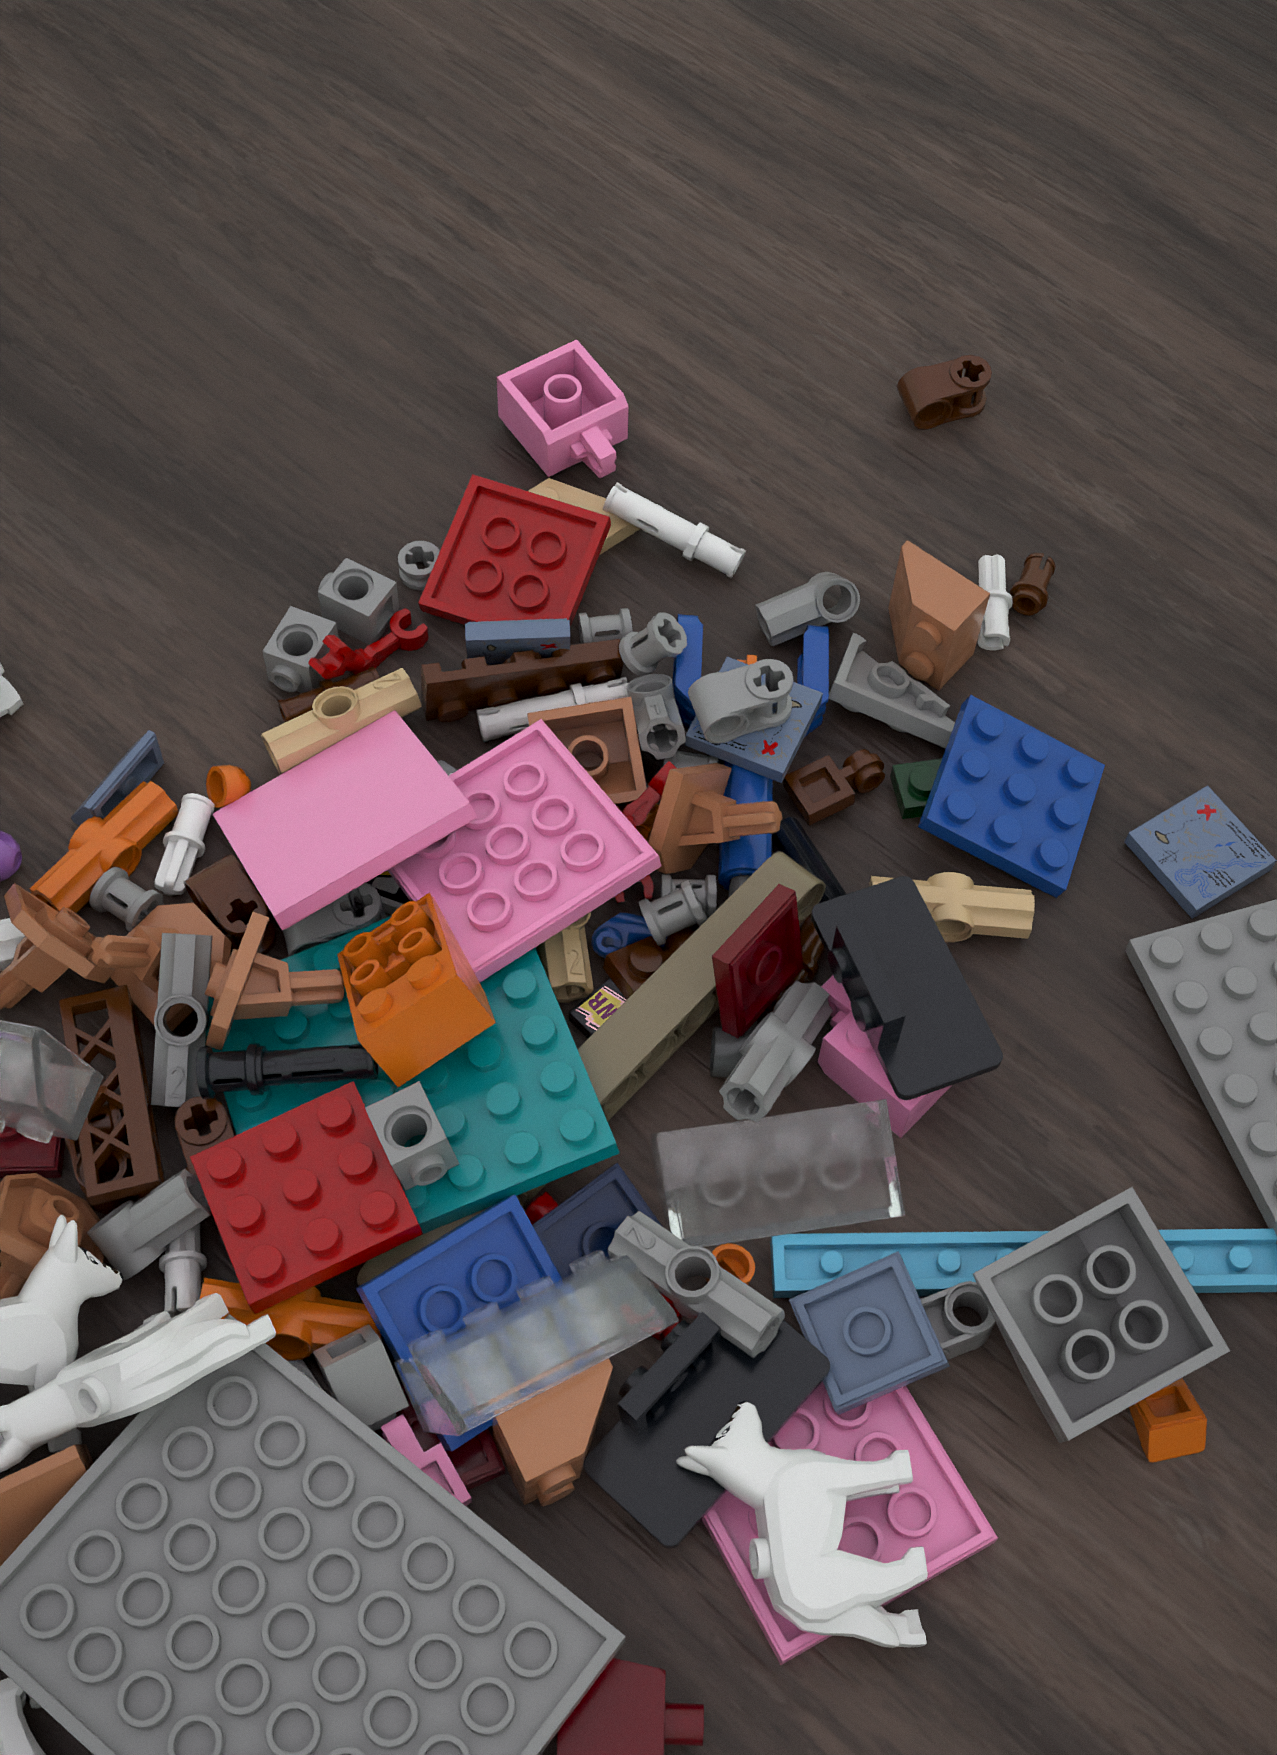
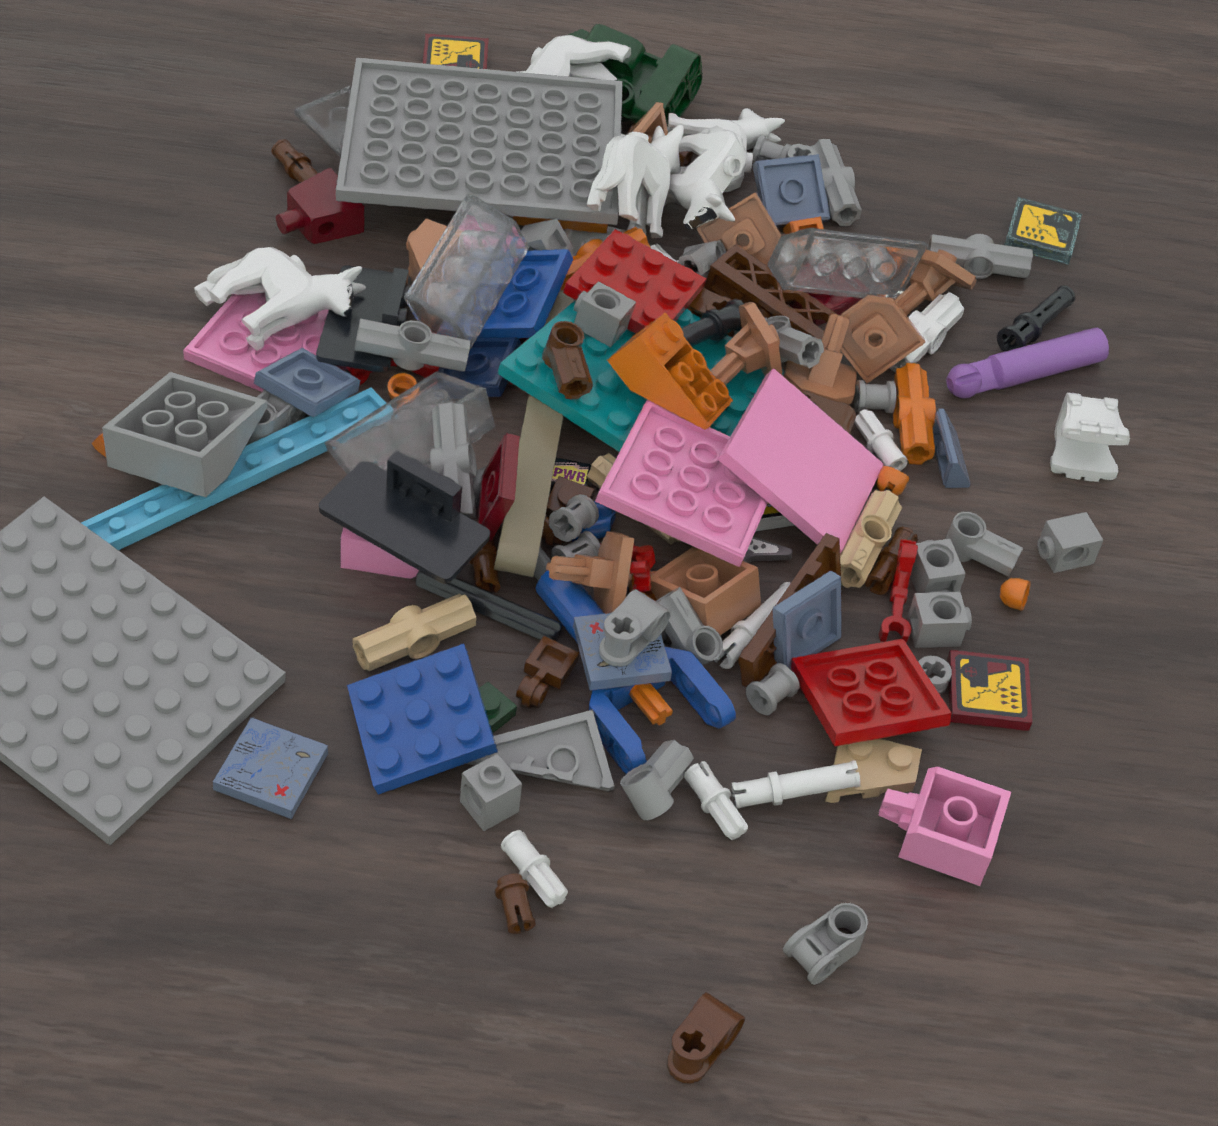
camera: 140 degrees right, 10 degrees down
(120, 599) = (1069, 542): none -> light grey brick
(219, 651) = (975, 542): none -> light grey piece
(238, 588) = (1015, 593): none -> orange hinge
(375, 521) = (990, 690): none -> tile
(539, 1066) = (567, 360): none -> reddish brown piece
(652, 644) = (738, 670): light grey bush -> none
(761, 564) = (716, 800): none -> white axle
(763, 398) = (822, 946): none -> light grey piece
(934, 616) = (567, 799): nougat slope -> none
(993, 676) = (490, 792): none -> light grey brick

